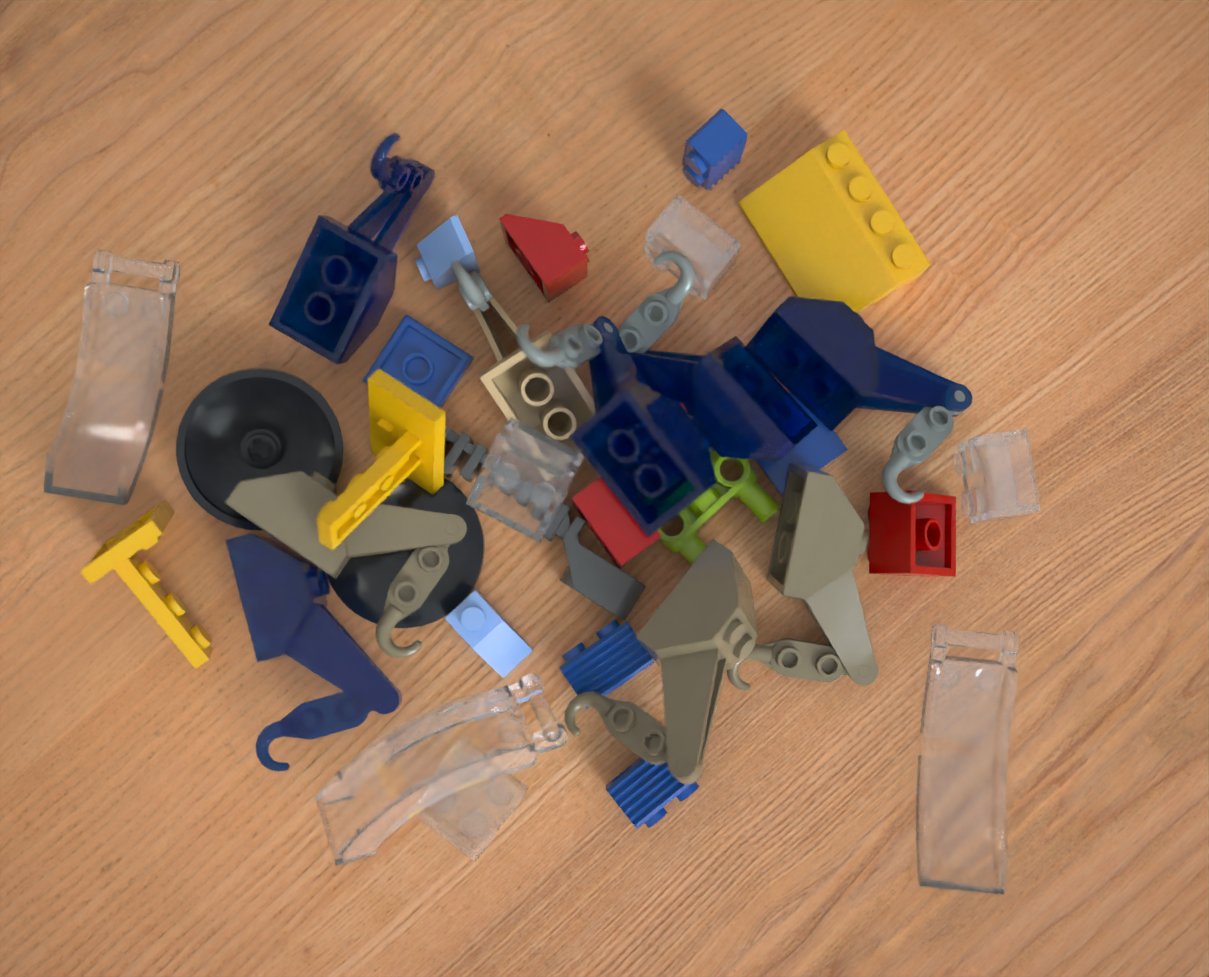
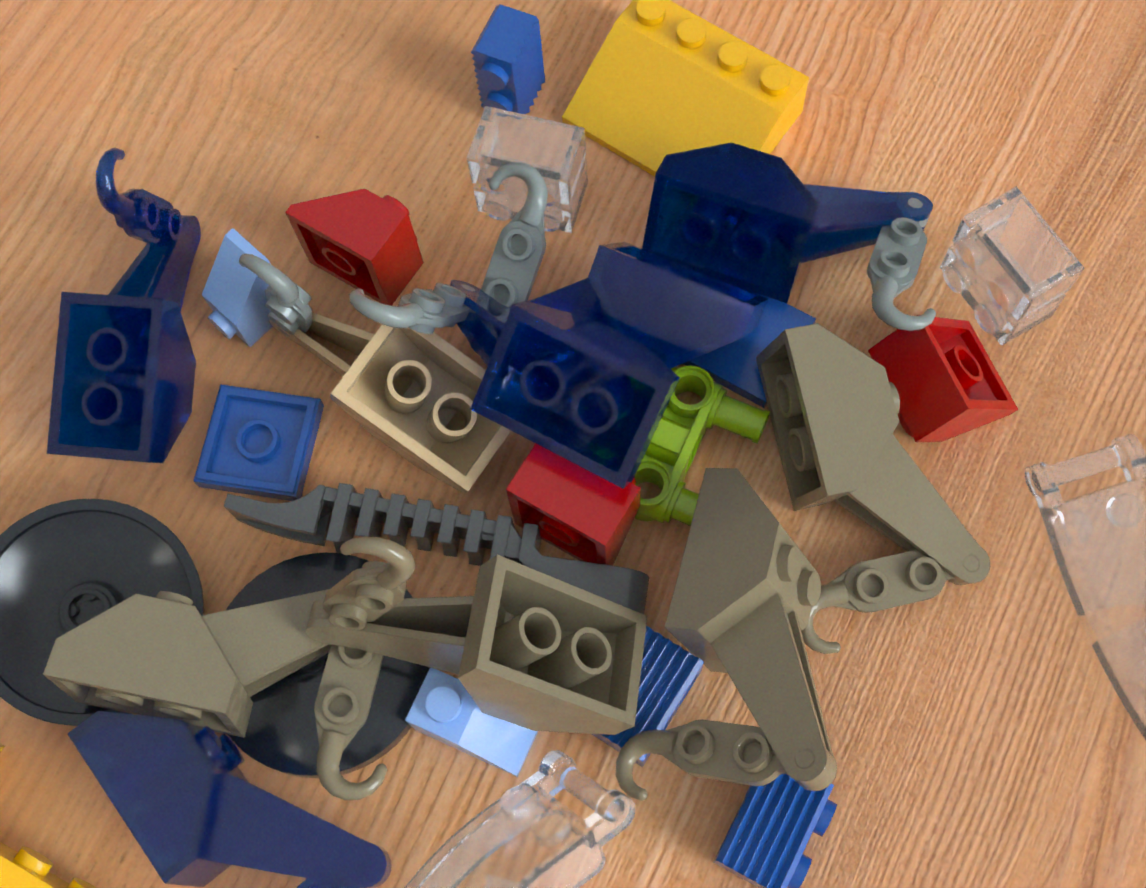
camera: 15 degrees left, 15 degrees down
(407, 443) = (269, 523): yellow piece -> none
(525, 479) = (442, 492): clear piece -> none
(545, 611) = (519, 645): none -> dark tan slope

